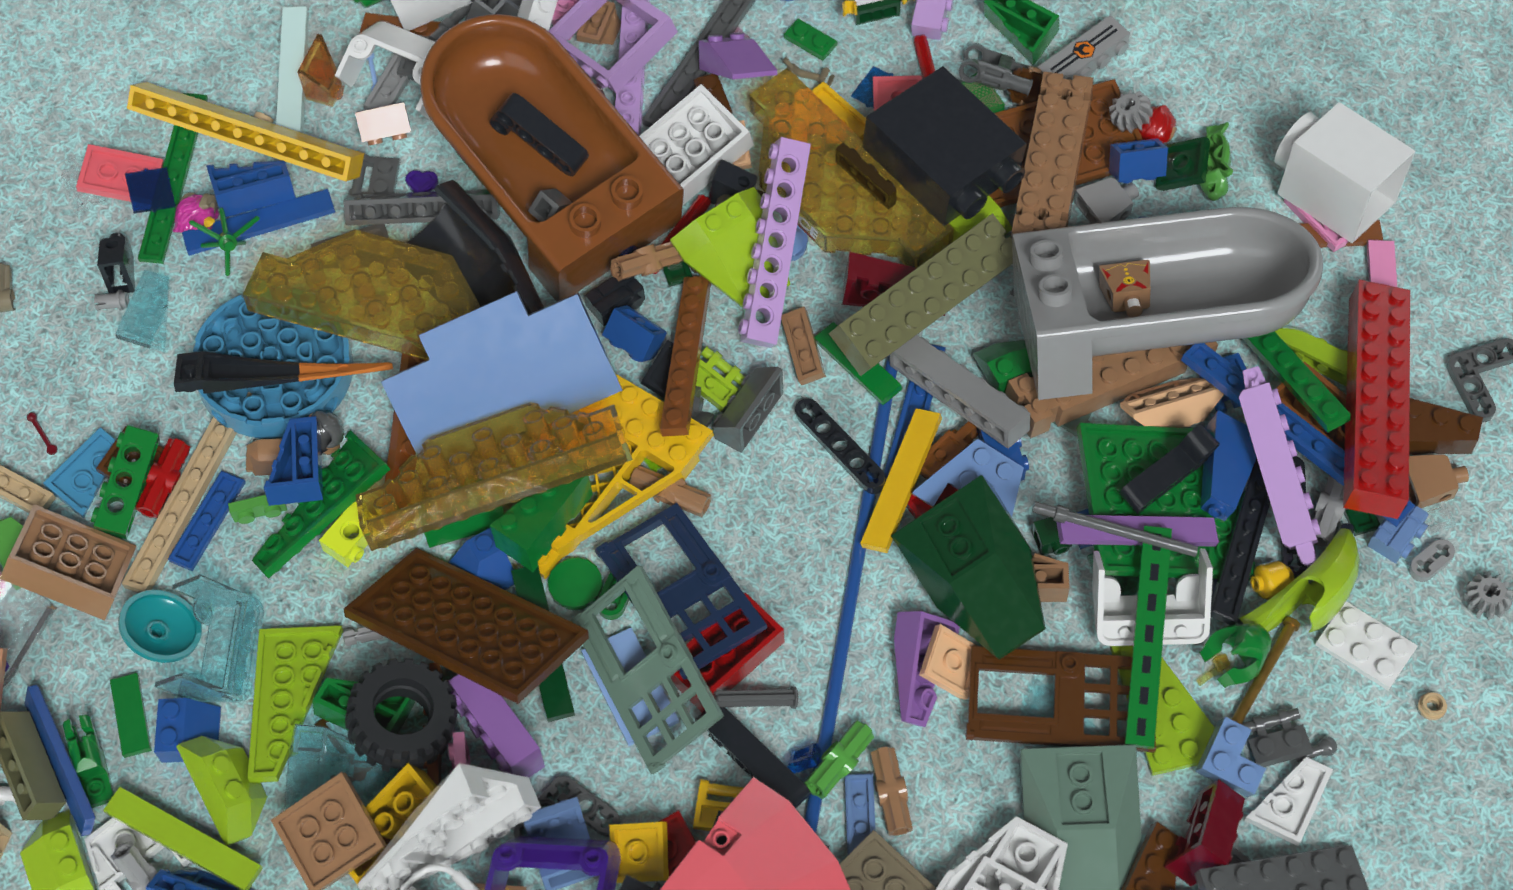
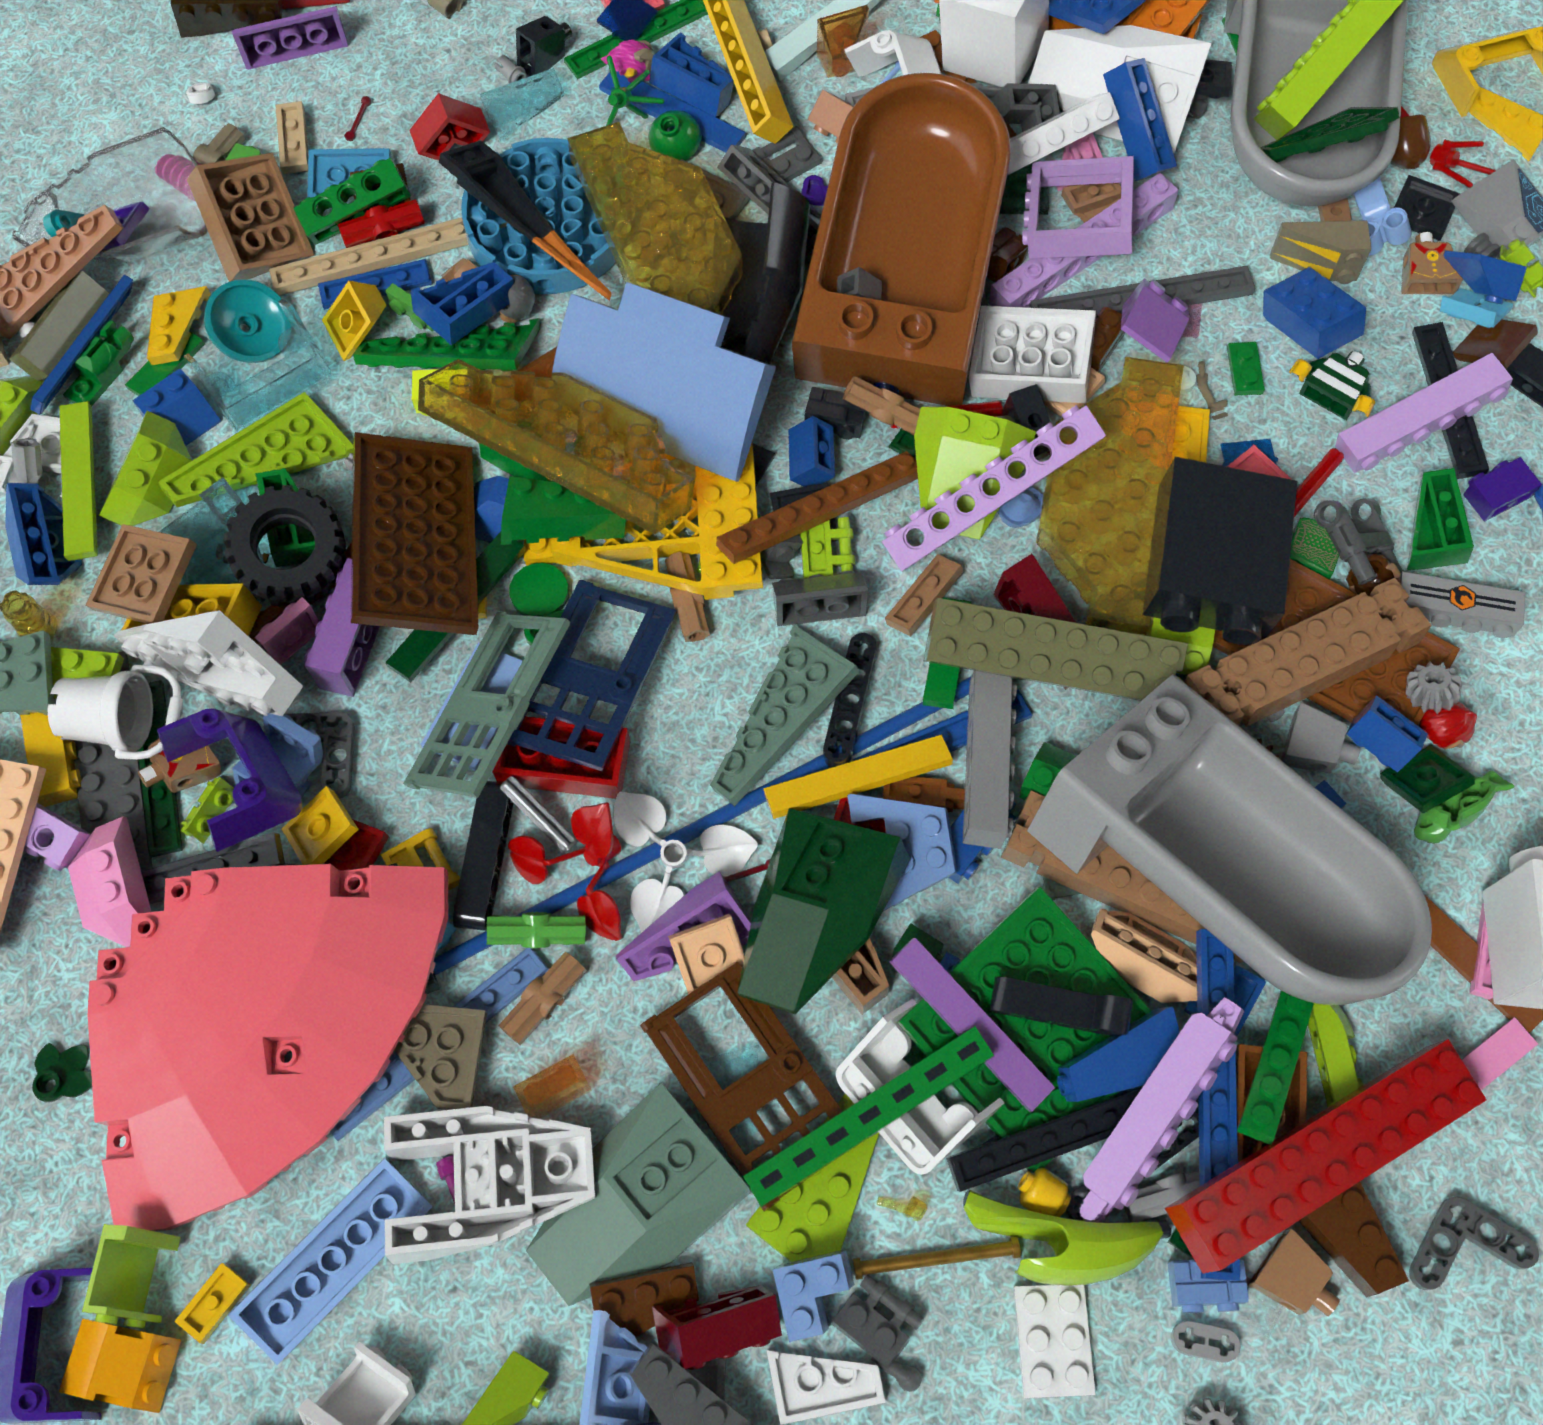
camera: 50 degrees right, 5 degrees up
(101, 683) = (171, 323): none -> yellow wing
(123, 374) = (447, 123): none -> red brick
(229, 552) = (353, 316): none -> yellow slope
(289, 244) = (681, 141): none -> green piece
(539, 133) = (916, 204): black beam -> none
(804, 758) = (514, 899): clear blue tile -> none
(809, 482) = (785, 706): none -> sand green wing
(813, 661) = (594, 829): none -> red plant
(866, 175) = (1128, 509): dark brown plate -> none
(879, 605) = (639, 818): none -> white plant
(914, 582) = (748, 872): none -> dark red hinge
(963, 825) = (552, 1088): none -> clear orange brick
(1062, 514) = (914, 939): dark grey bar -> none
(1126, 286) = (1221, 822): medium nougat torso -> none
(1249, 641) = (945, 1221): green piece -> none

